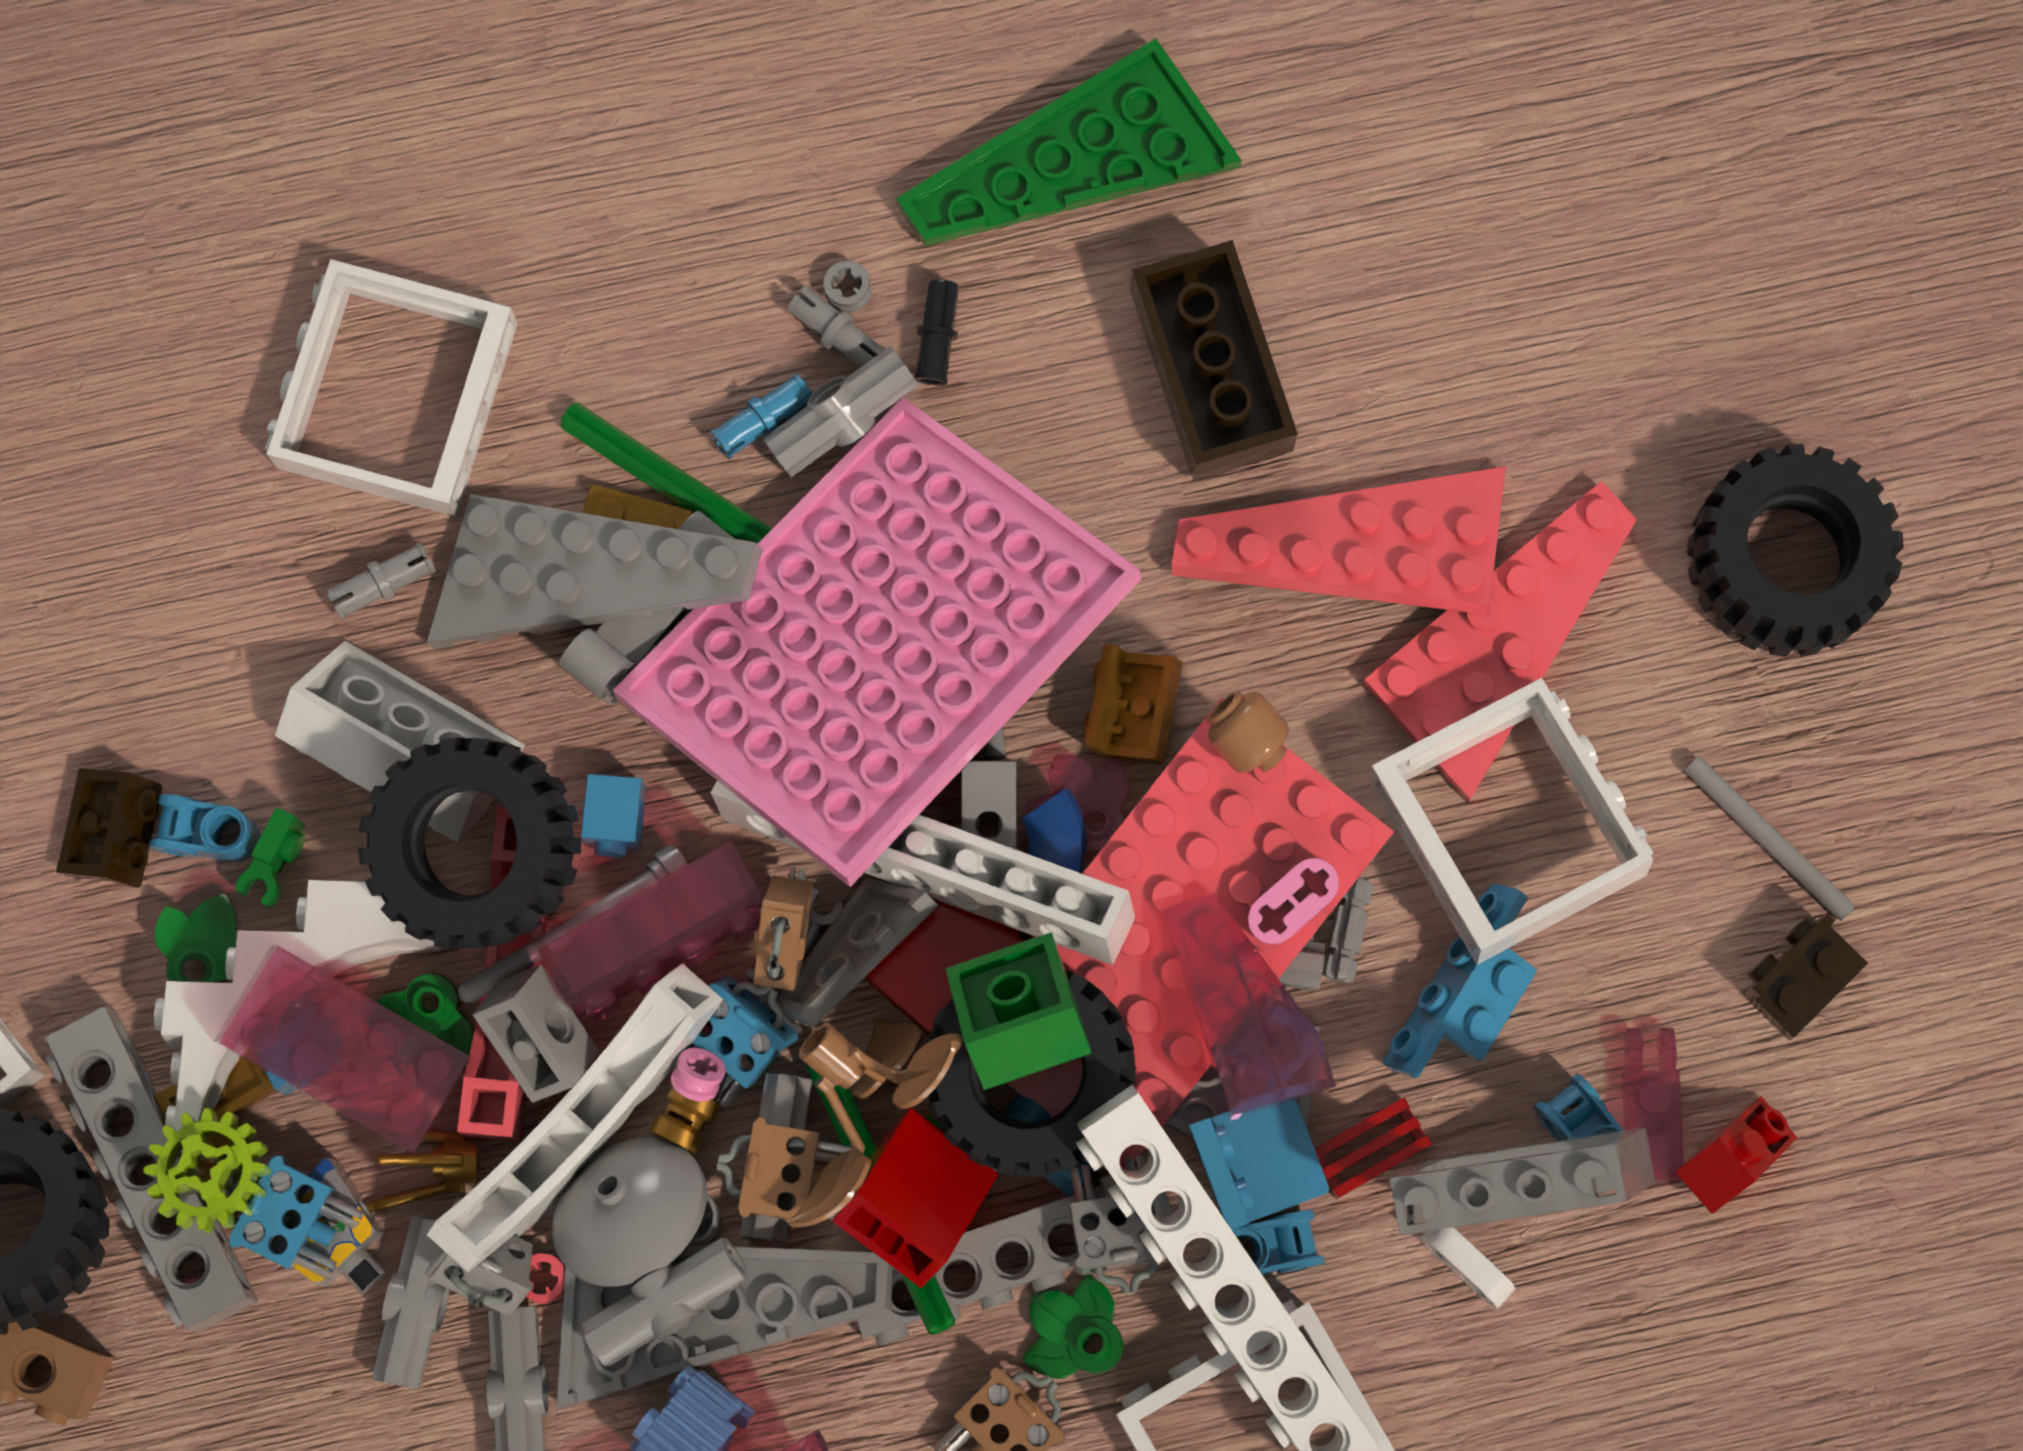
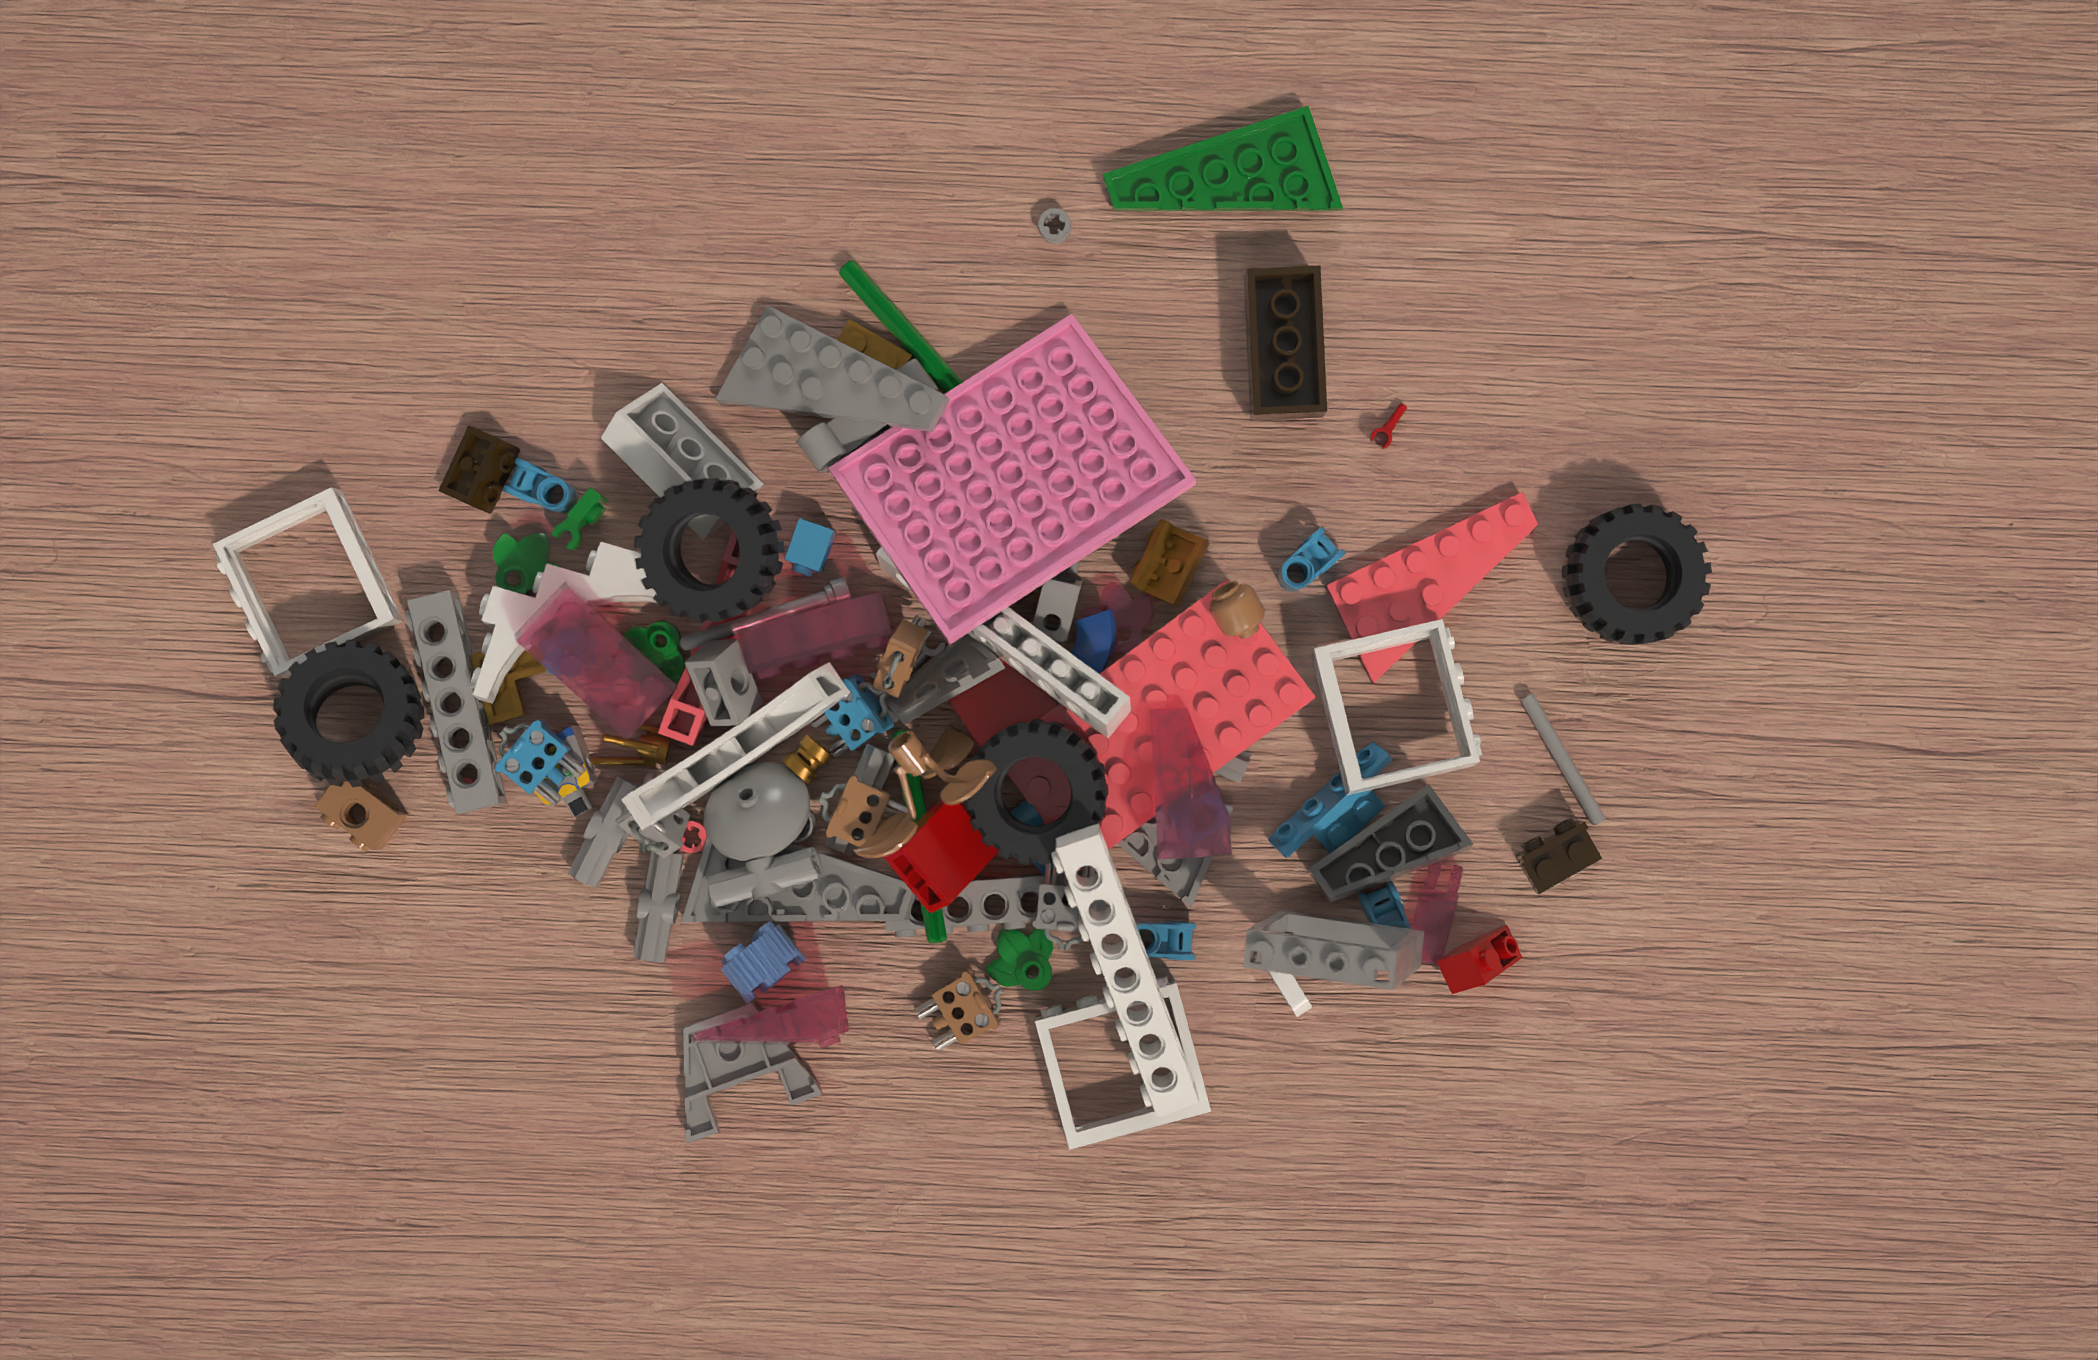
camera: 15 degrees right, 10 degrees up
(198, 1149) = (486, 705): lime gear -> none
(315, 346) = (687, 176): white window -> none
(380, 580) = (694, 349): light grey pin -> none
(698, 1074) = (828, 729): bright pink bush -> none
(761, 416) = (974, 302): dark azure pin -> none
(834, 328) = (1039, 255): light grey pin -> none
(840, 411) = (1027, 313): light grey piece -> none
(937, 332) = (1106, 274): black axle -> none
(1017, 1011) = (1036, 758): green slope -> none
(1259, 1162) = (1167, 888): dark azure bracket -> none
(1302, 911) = (1241, 735): bright pink beam -> none
(1334, 645) = (1313, 556): none -> dark azure piece
(1348, 933) = (1268, 751): light grey axle -> none
(1387, 543) = (1366, 497): coral wing -> none
(1390, 437) = (1389, 425): none -> red hand
(1409, 1125) = (1273, 885): red tile -> none
(1567, 1018) = (1394, 845): none -> dark grey wedge

